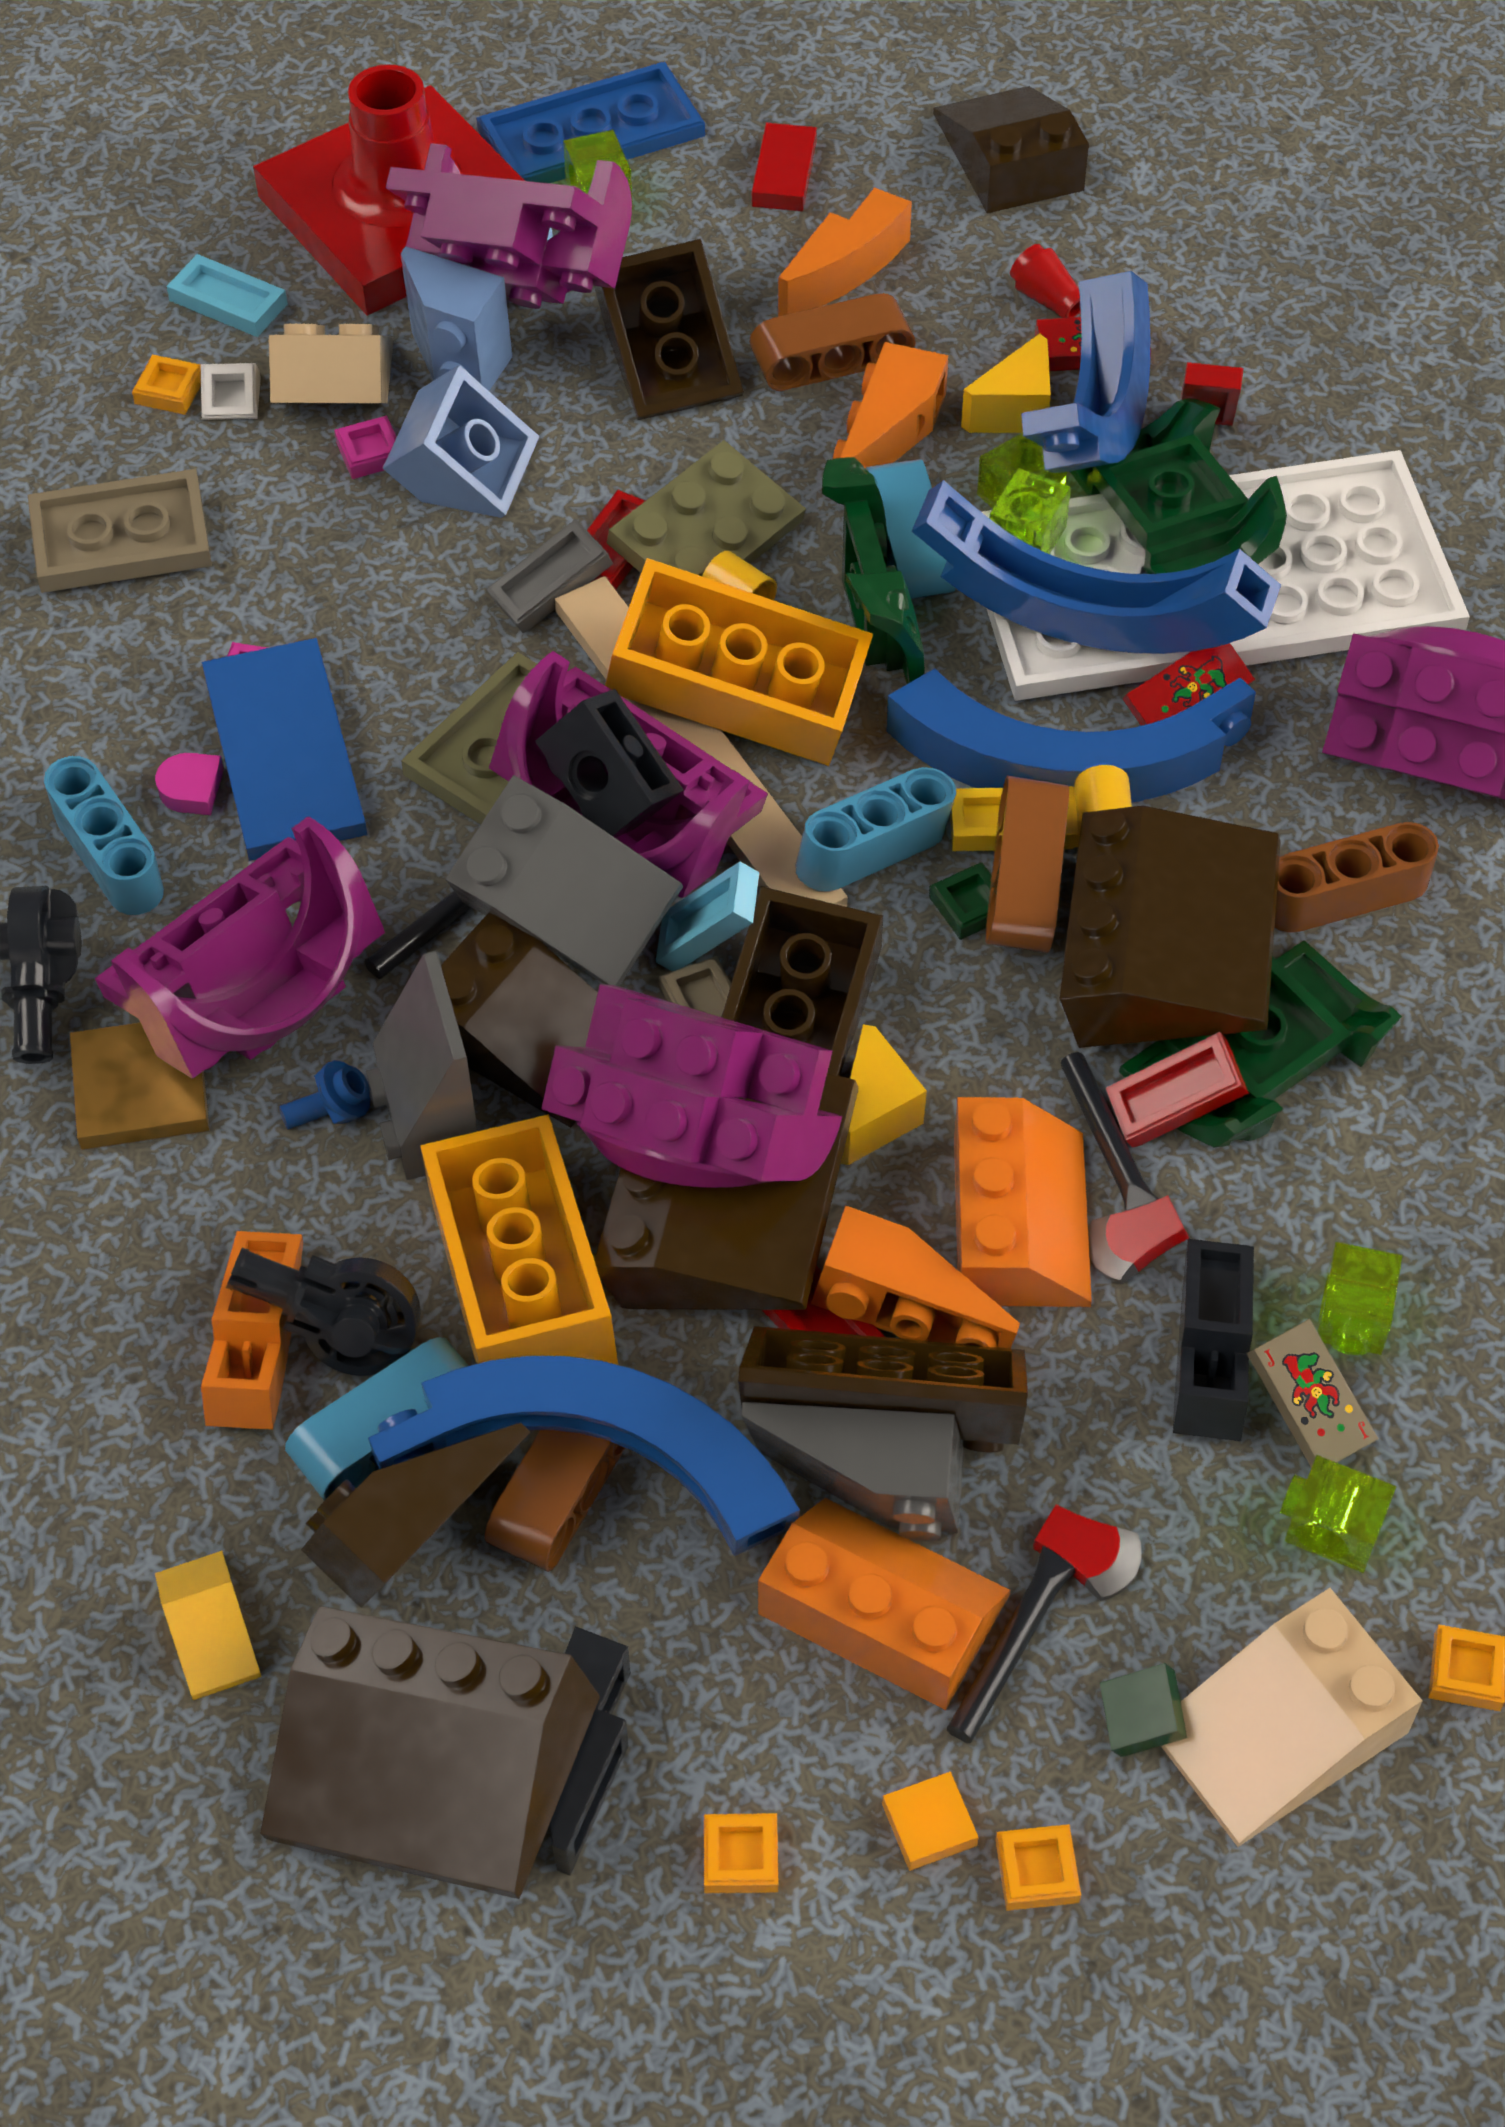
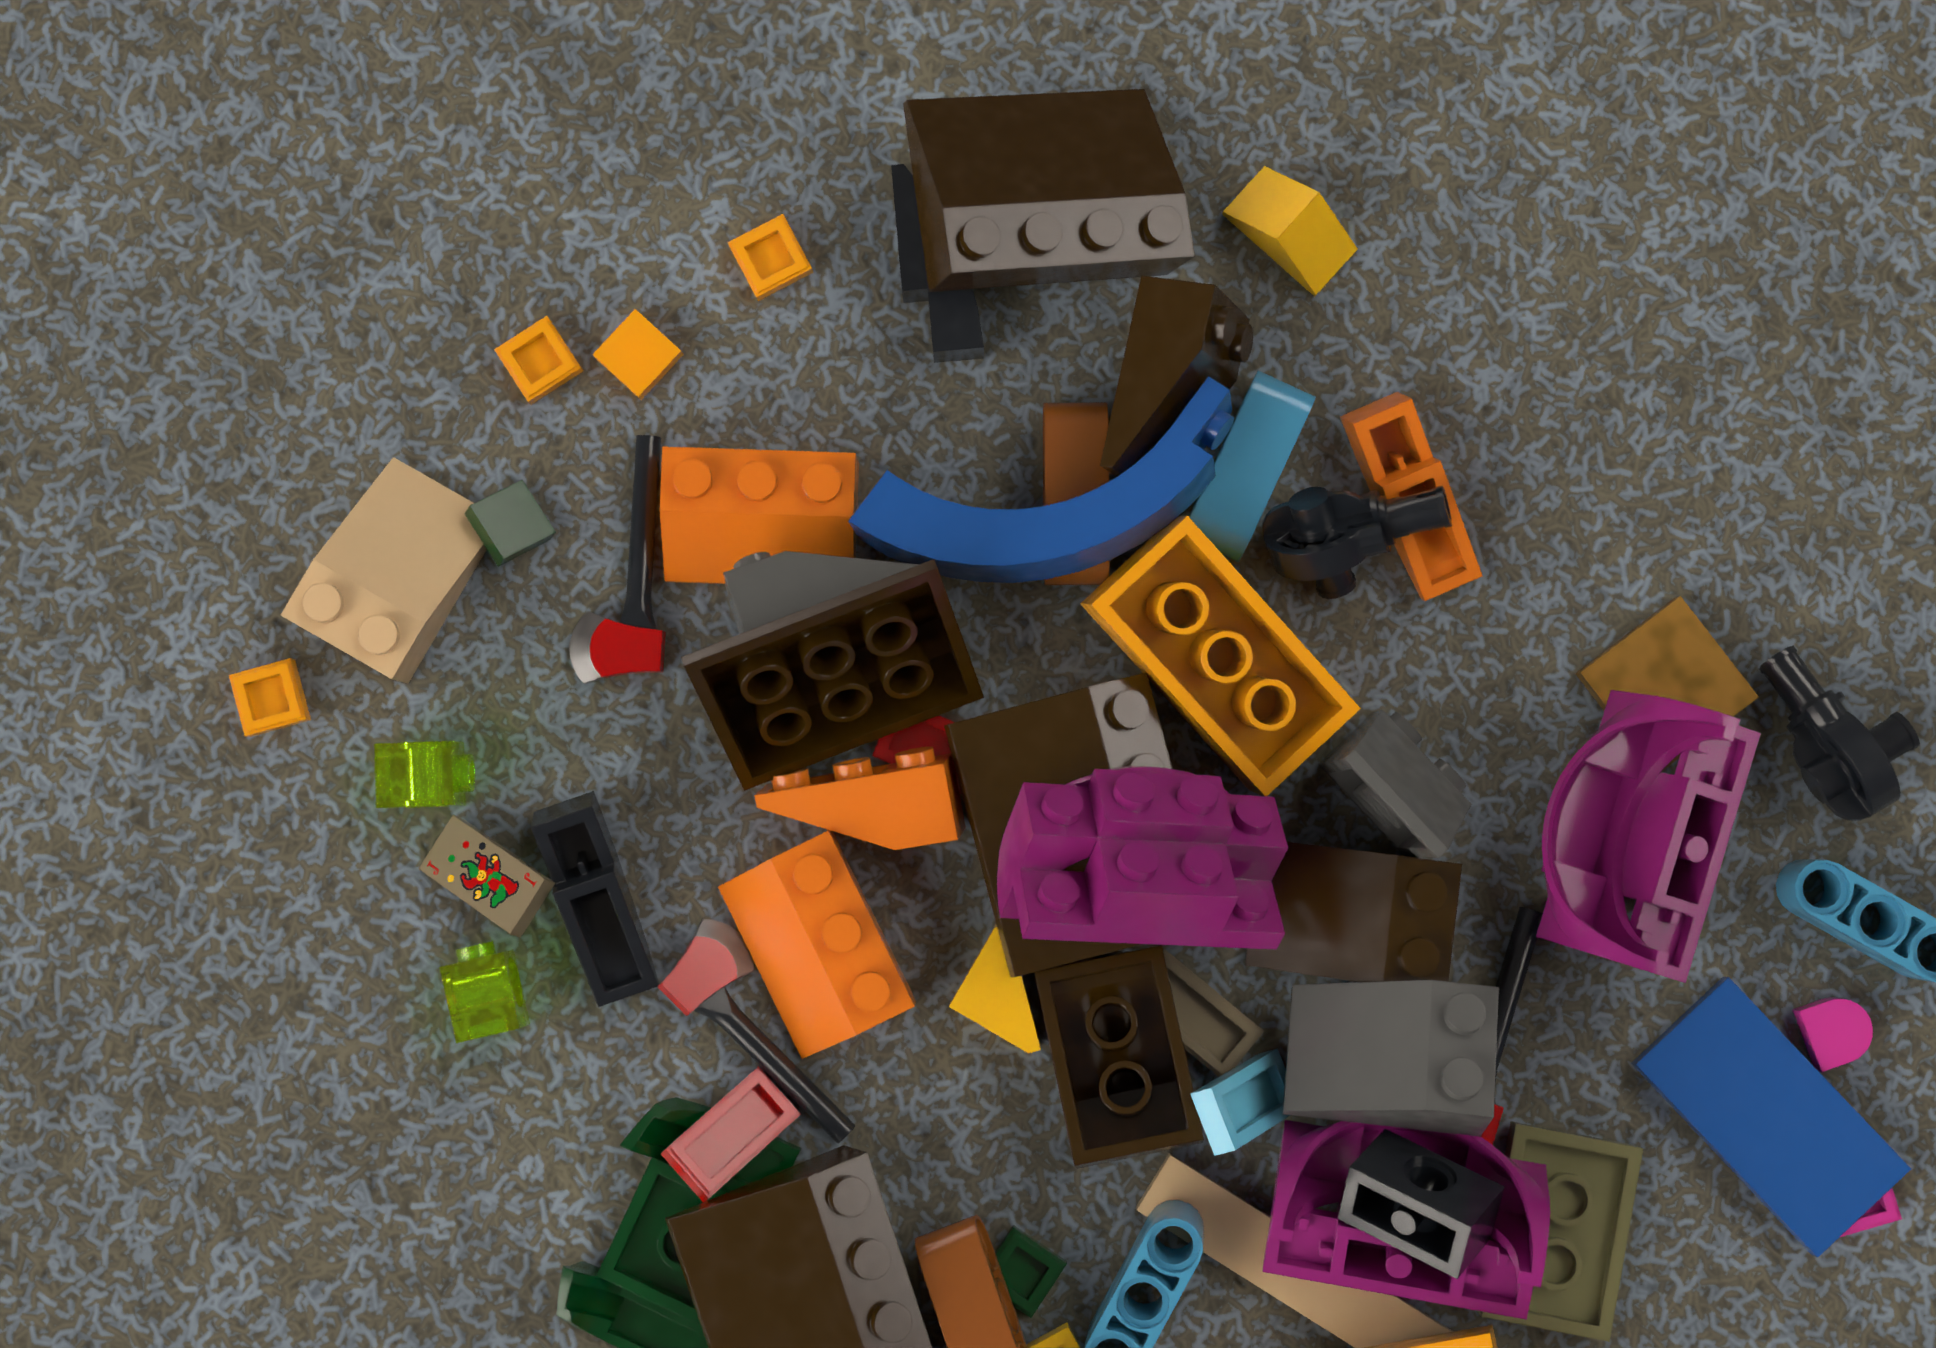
camera: 155 degrees right, 30 degrees up
(341, 1095) = (1480, 757): blue plate -> none

